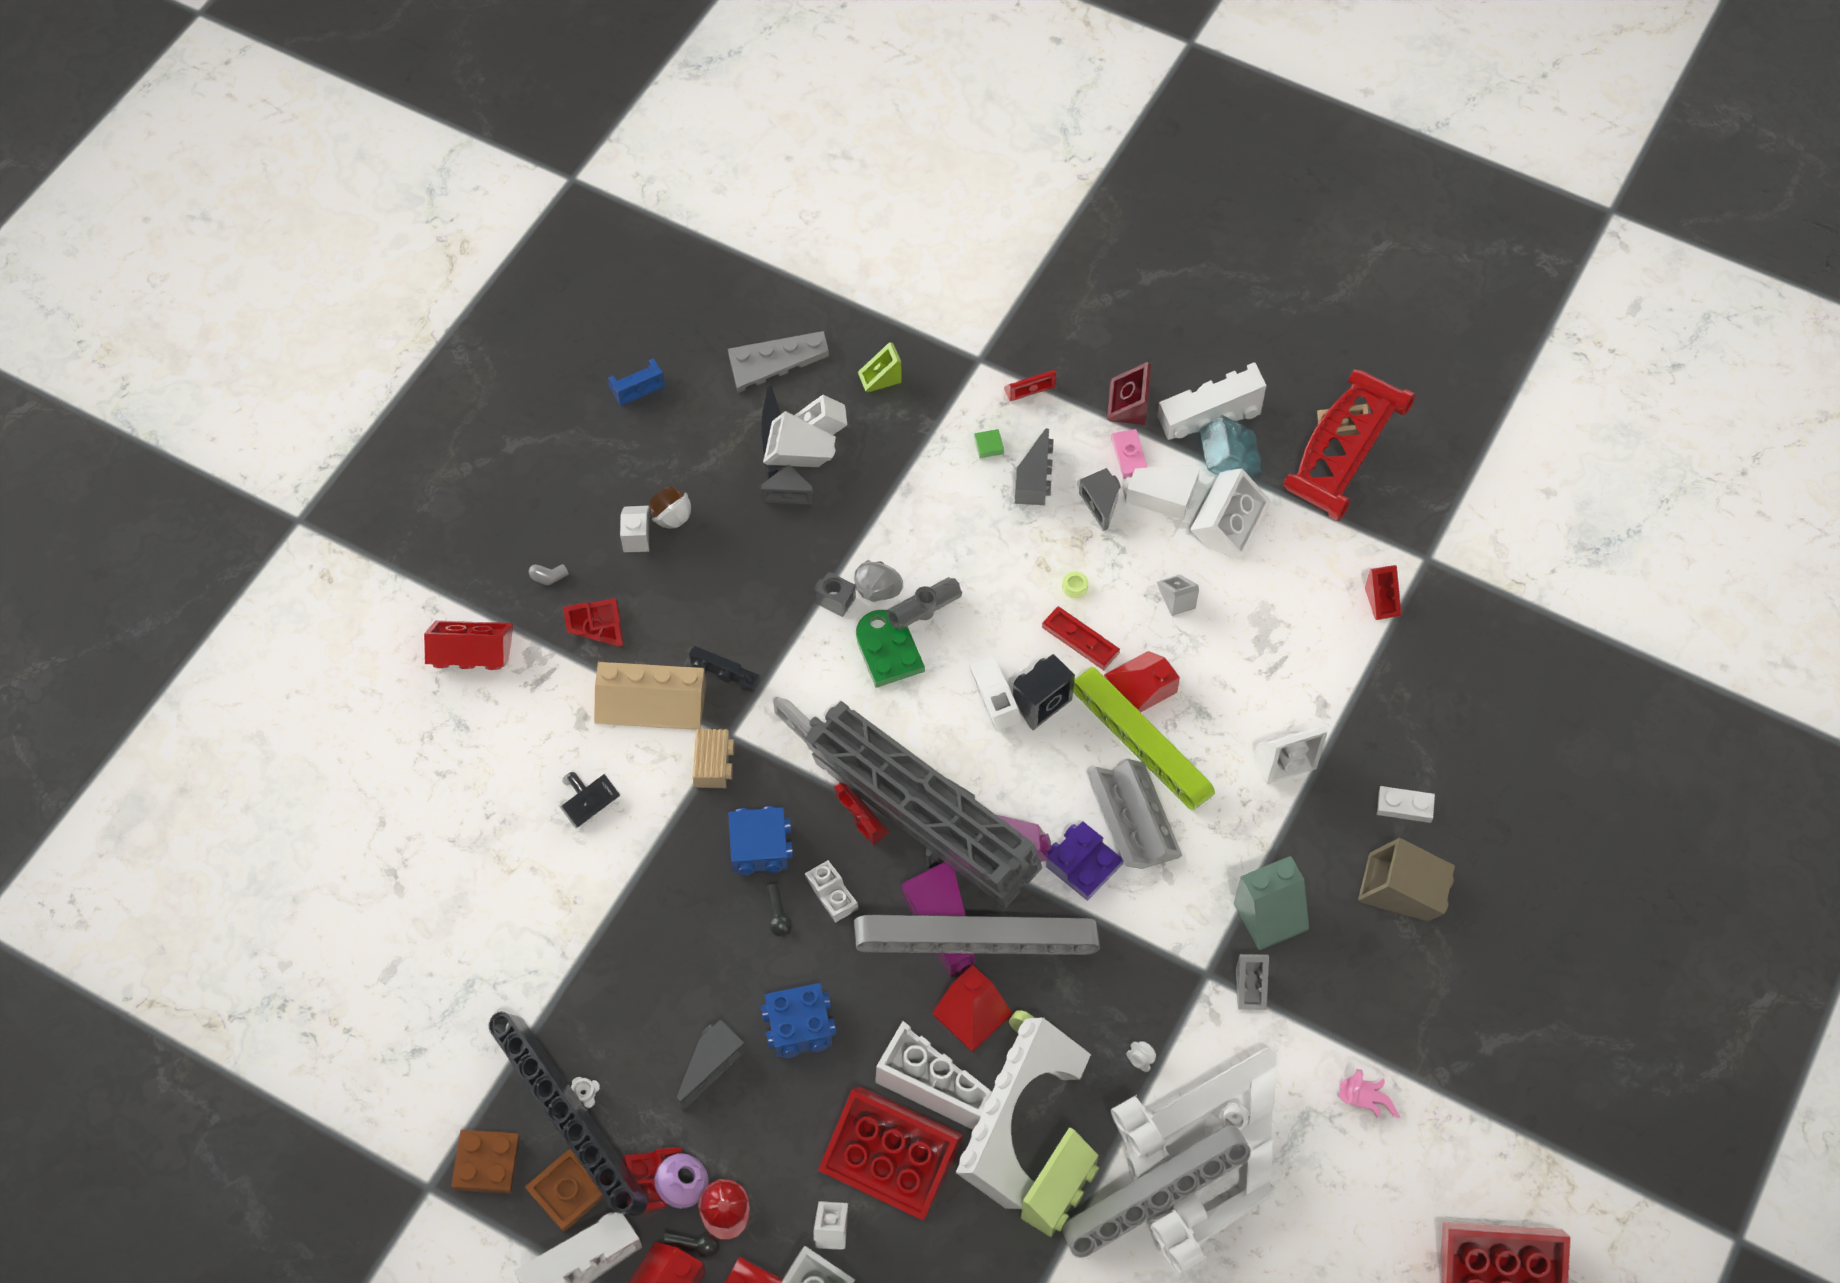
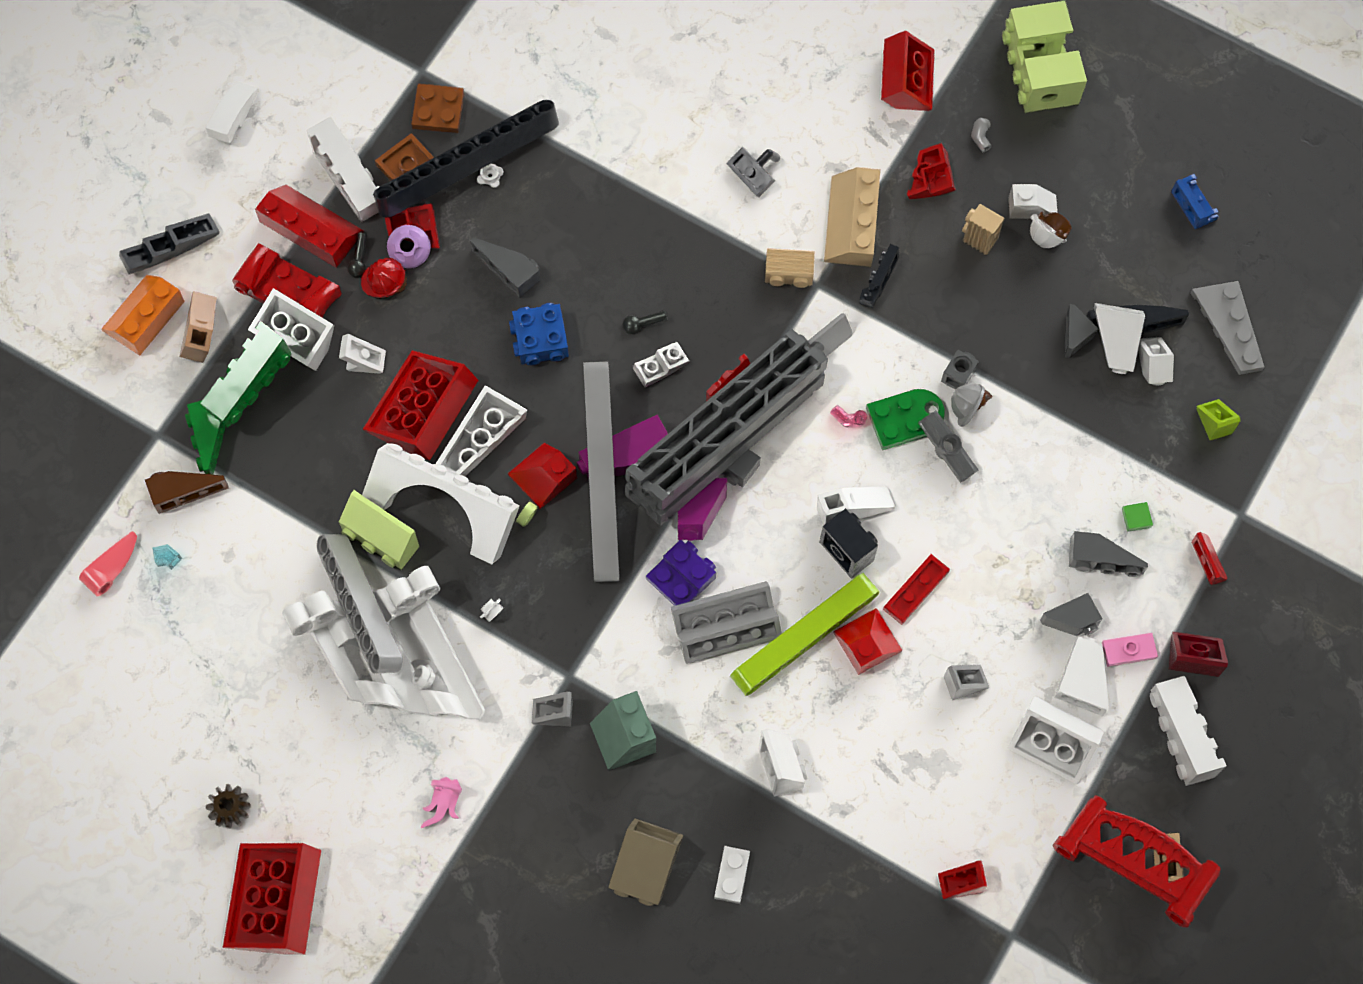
camera: 90 degrees right, 10 degrees up
(437, 527) = (1042, 67): none -> yellowish green piece
(671, 566) = (982, 228): none -> tan brick
(759, 840) = (706, 302): blue brick -> none
(893, 700) = (855, 419): none -> clear pink arm
(1075, 585) = (975, 587): yellowish green tile -> none
(1230, 447) = (1134, 747): clear light blue slope -> none

